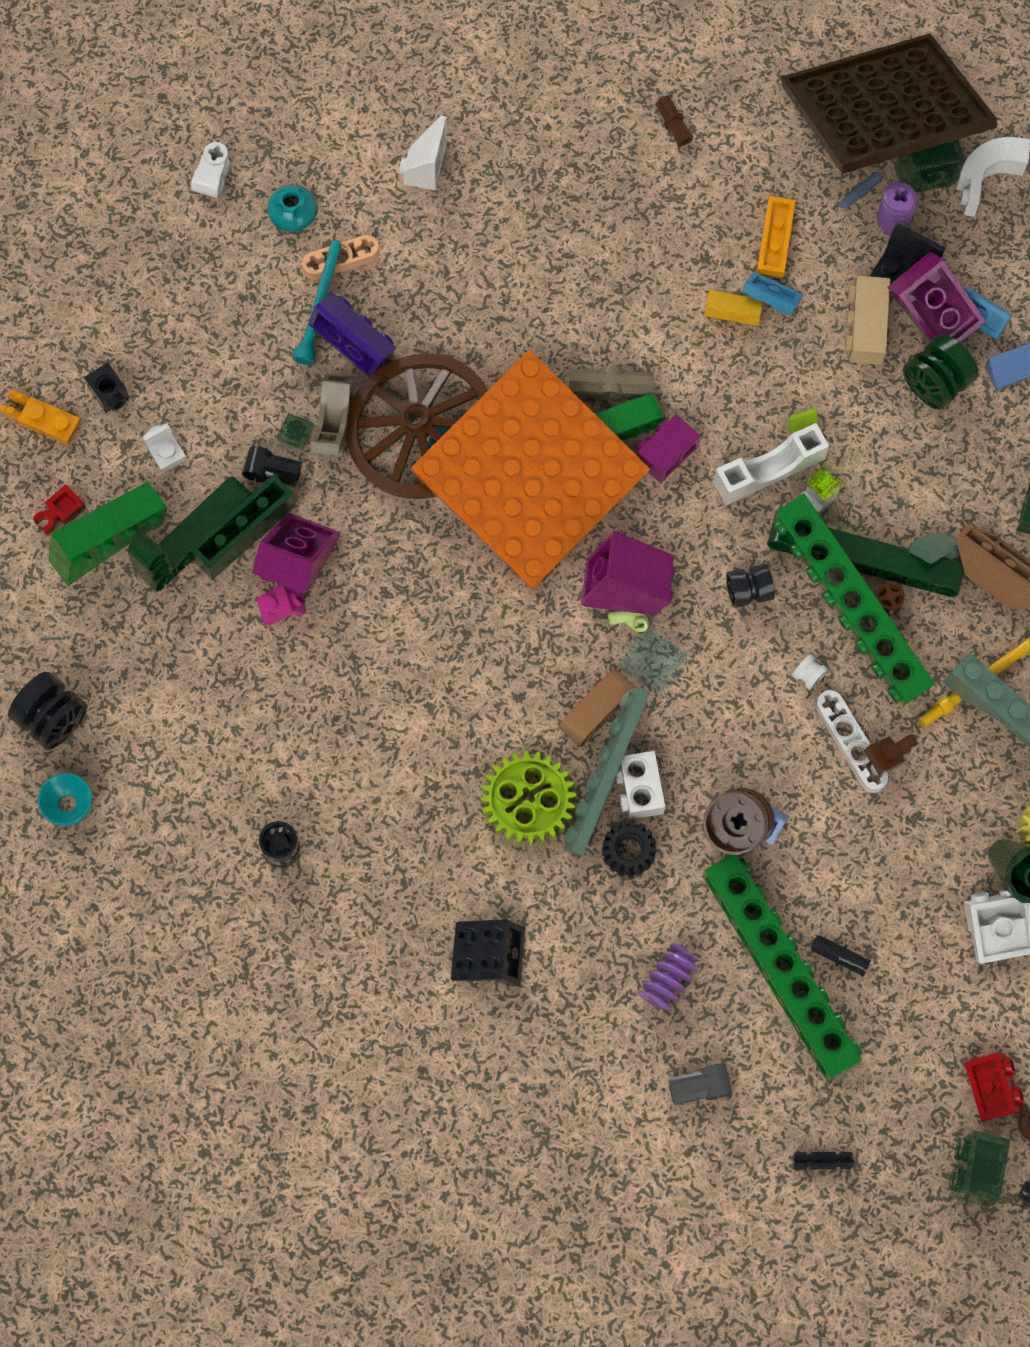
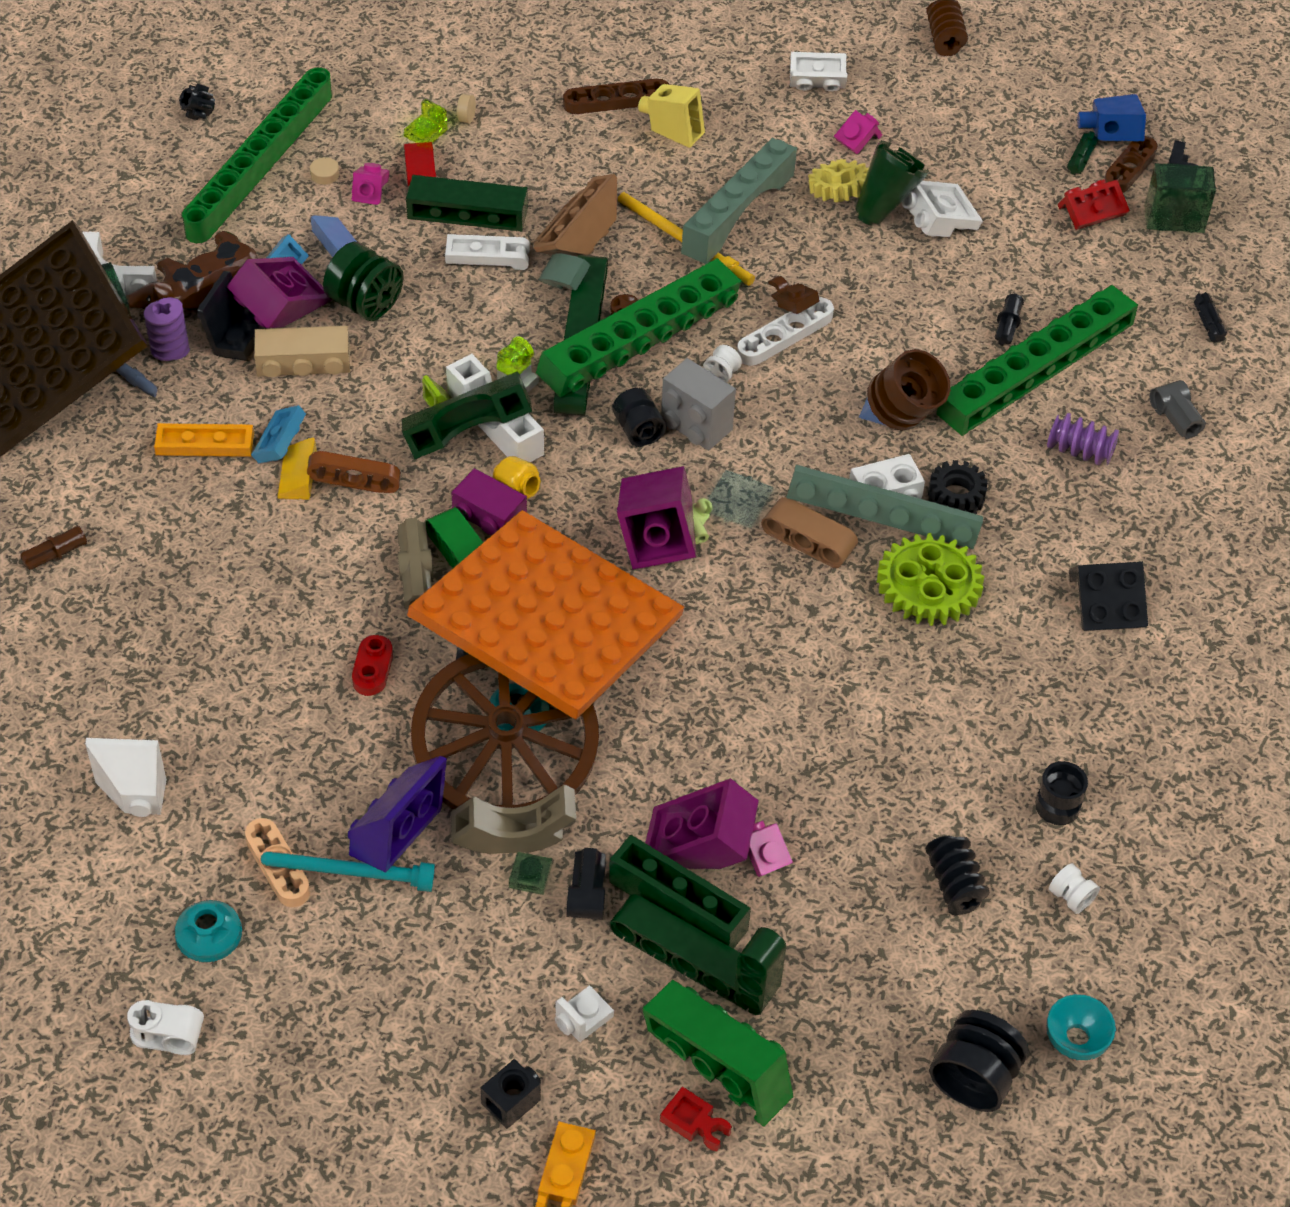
camera: 100 degrees left, 20 degrees down
(191, 833) = (1074, 888): none -> white wheel
(222, 744) = (957, 873): none -> black piece
(515, 343) = (372, 662): none -> red plate
(693, 474) = (518, 475): none -> yellow head
(716, 344) = (323, 467): none -> dark orange beam
(749, 632) = (698, 404): none -> light grey brick
(755, 410) = (492, 402): none -> dark green arch
(966, 247) = (194, 280): none -> reddish brown animal
(985, 490) = (487, 250): none -> white plate

